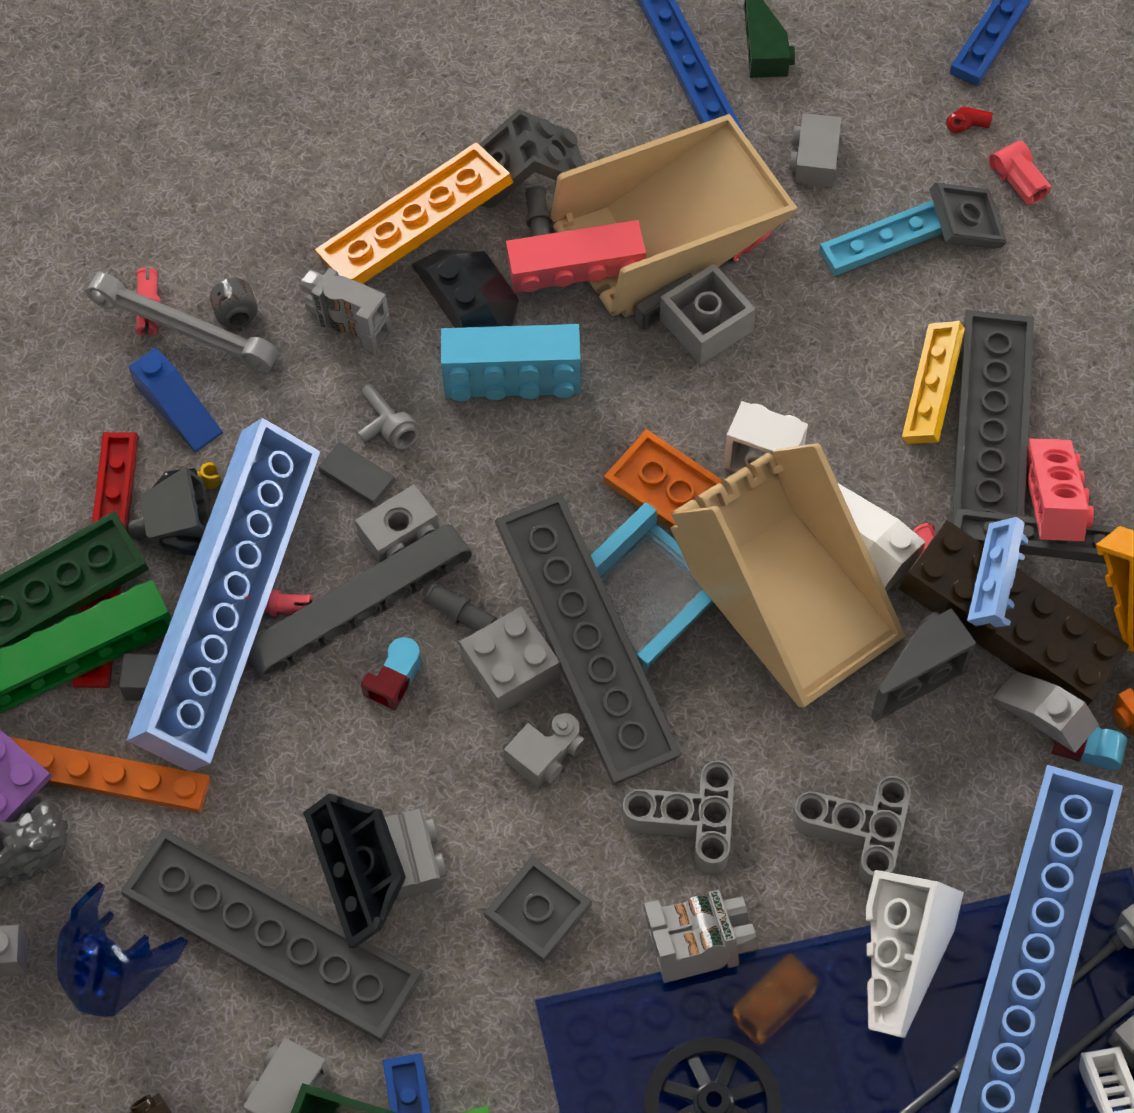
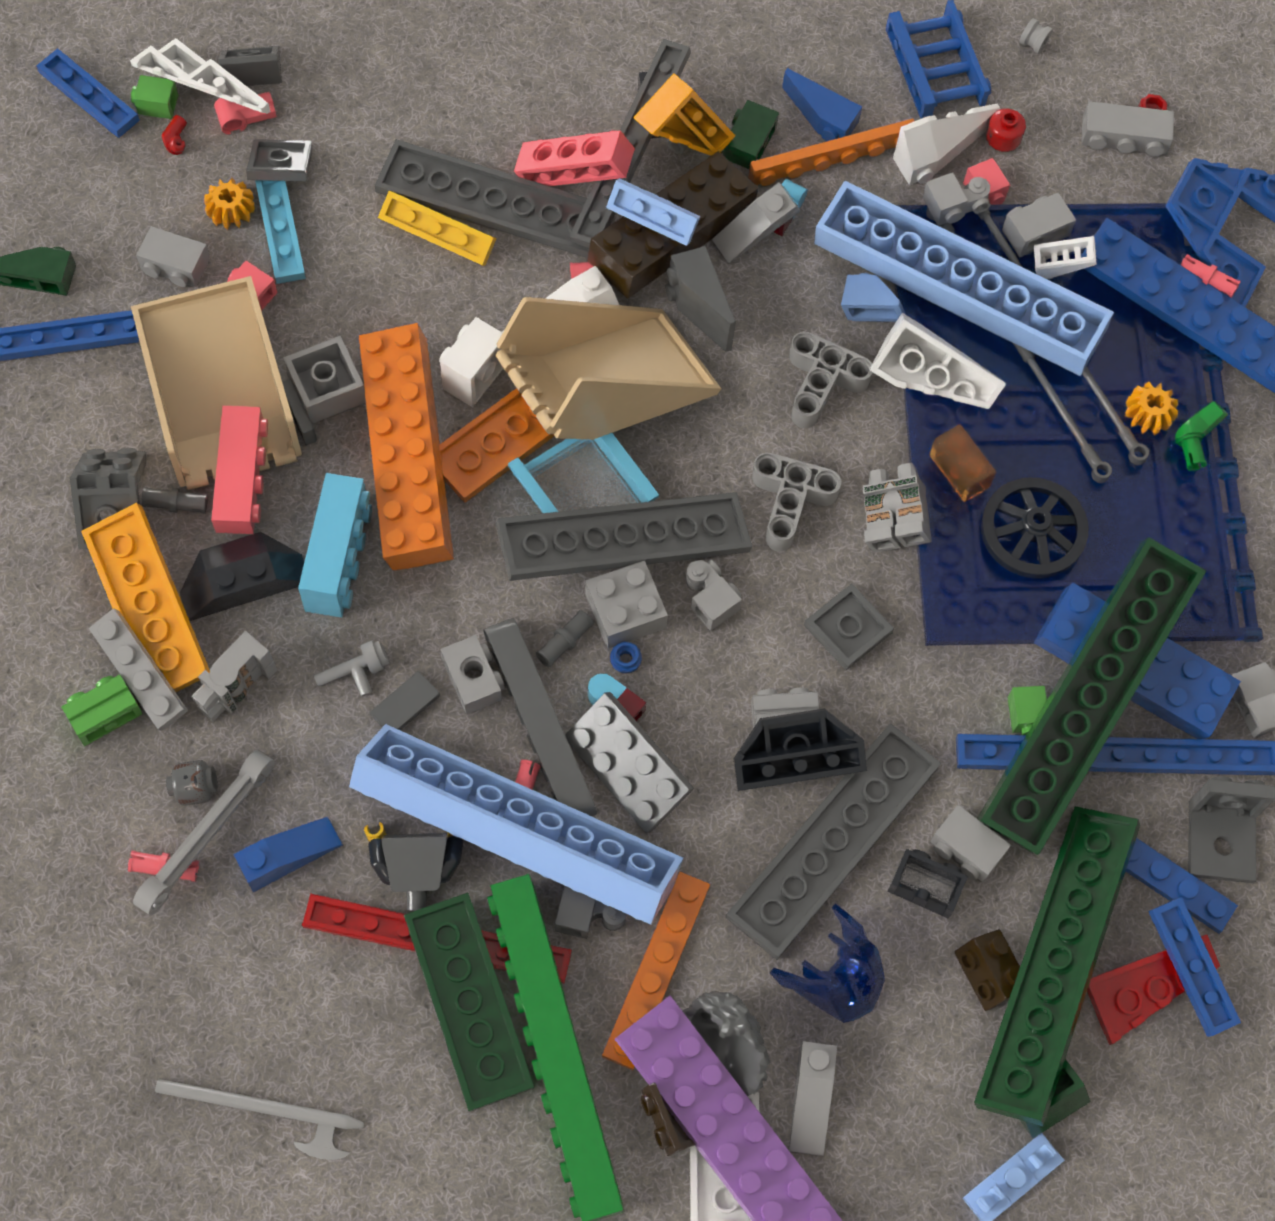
camera: 85 degrees left, 5 degrees up
(232, 1045) = (928, 882): none -> black window
(298, 211) = (101, 709): none -> bright green brick
(320, 695) = (628, 762): none -> plate
(342, 227) = (138, 669): none -> light grey plate
(452, 666) = (625, 648): none -> blue plate
(646, 404) = (405, 448): none -> orange brick
(804, 227) = (263, 283): none -> coral brick
(899, 184) = (229, 203): none -> light orange gear
(984, 861) = (869, 300): none -> medium blue slope
(1007, 89) = (155, 96): none -> bright green brick
(1043, 106) = (184, 66): none -> white wedge
(1081, 162) = (253, 65): none -> dark grey slope

